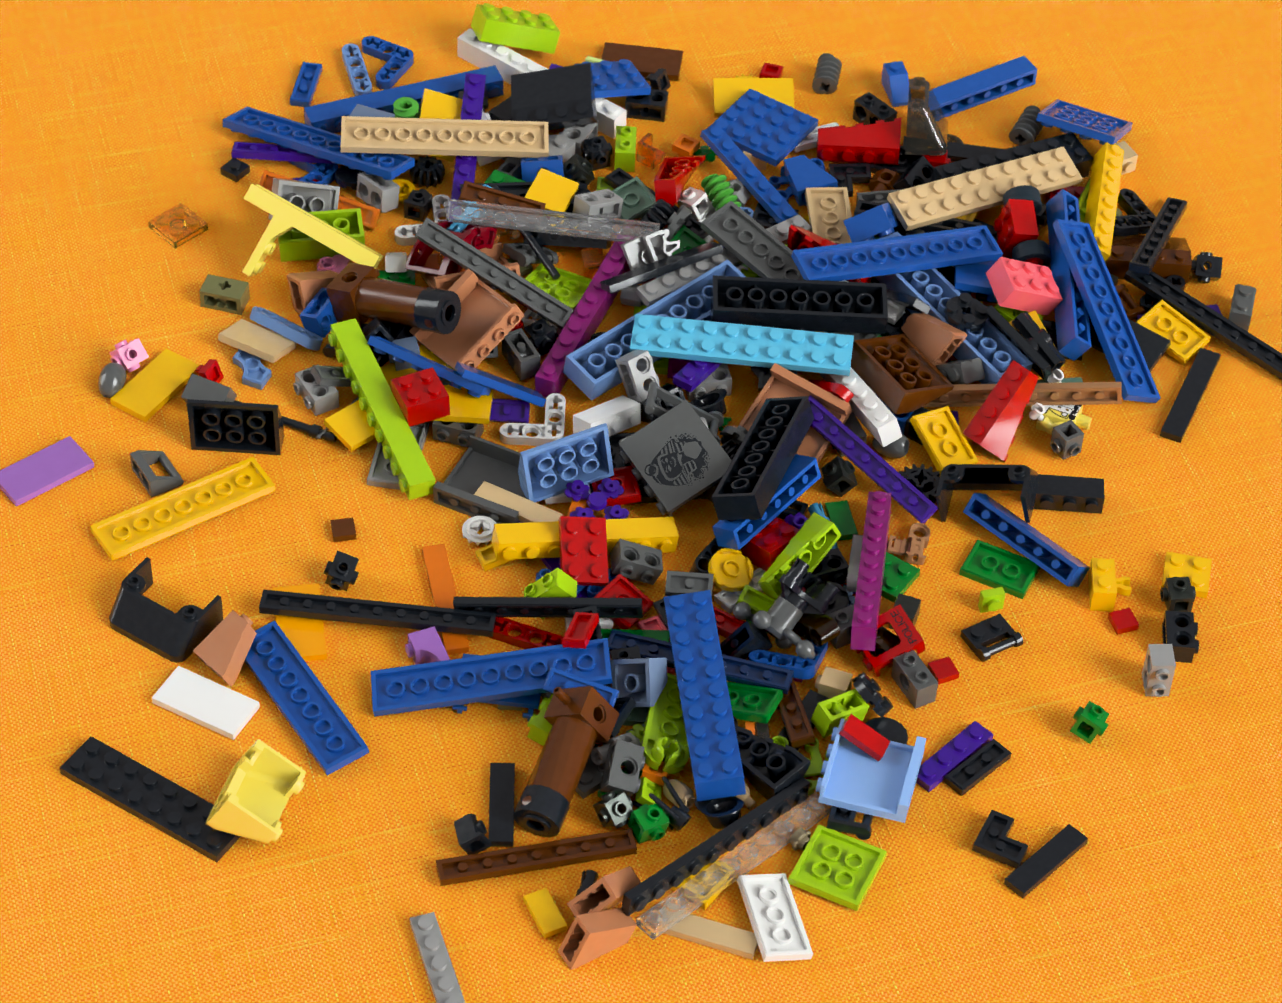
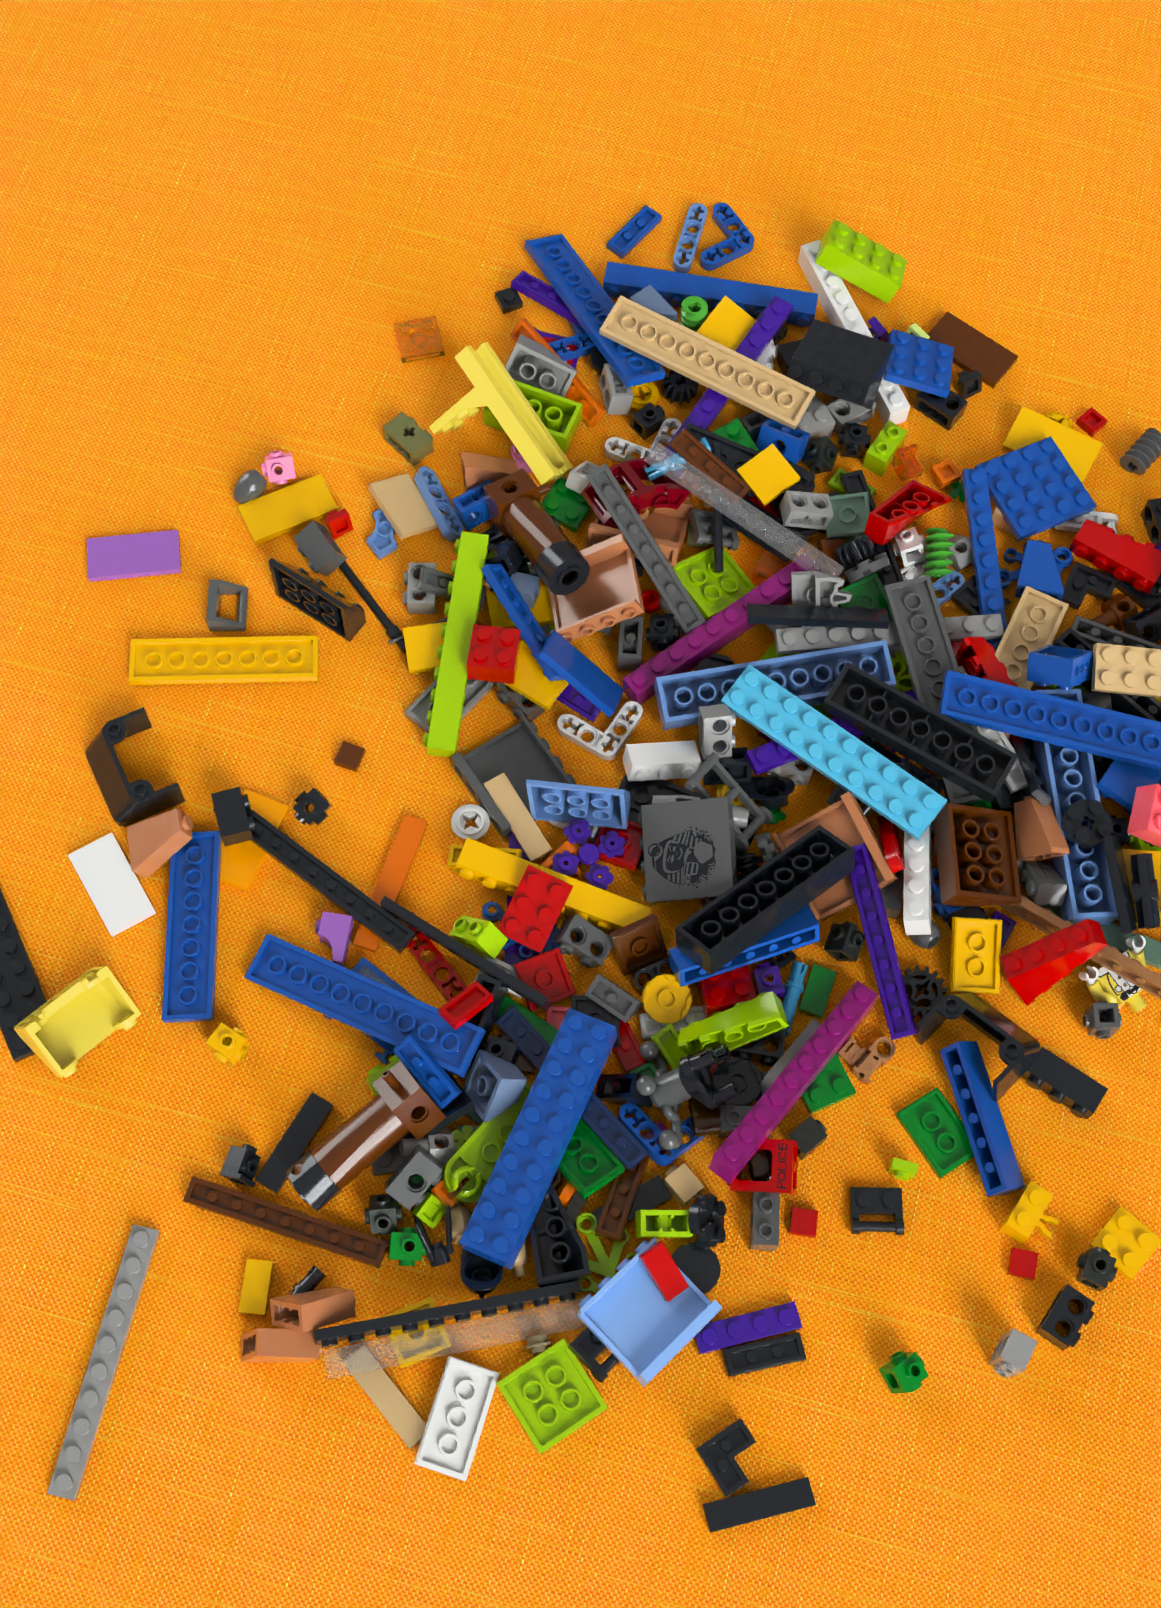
camera: 30 degrees right, 20 degrees up
(283, 598) = (232, 816): none -> black brick
(396, 759) = (228, 1044): none -> yellow brick
(681, 543) = (638, 944): none -> reddish brown tile

